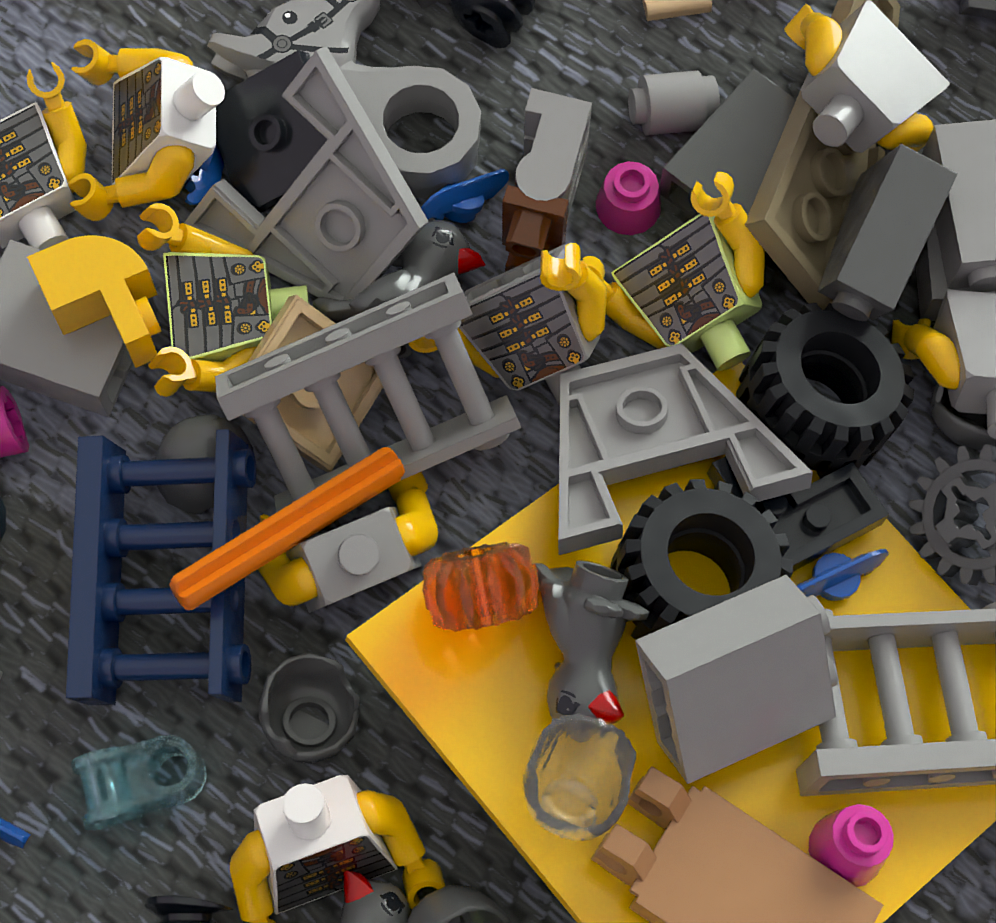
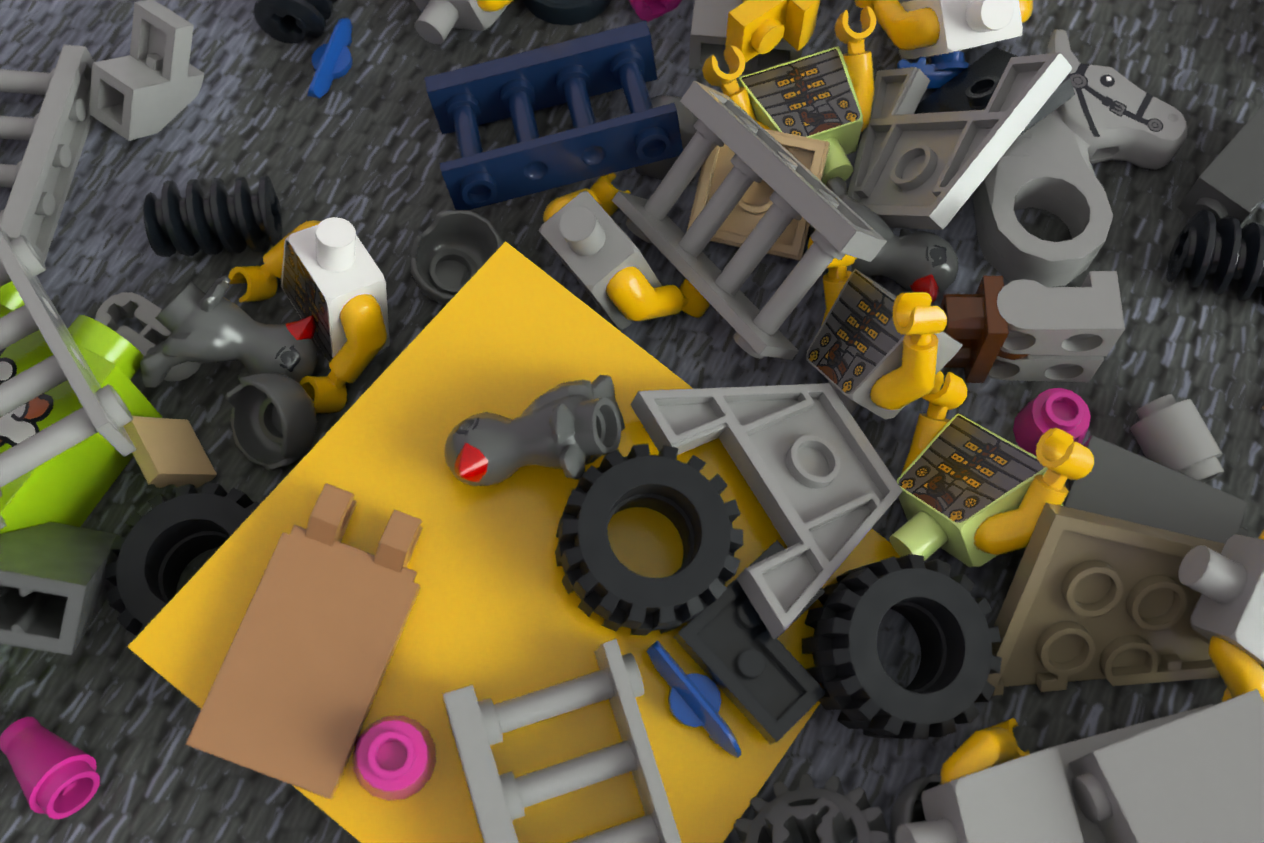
camera: 80 degrees right, 5 degrees down
(124, 782) = (376, 159): clear light blue piece -> none
(286, 528) = (601, 180): orange axle -> none
(464, 199) = (980, 257): blue piece -> none
(480, 586) = (568, 326): clear orange gear -> none
(578, 777) = (391, 447): clear hair -> none
(738, 677) = (525, 580): light grey brick -> none
(884, 232) = (1098, 658): dark grey slope -> none

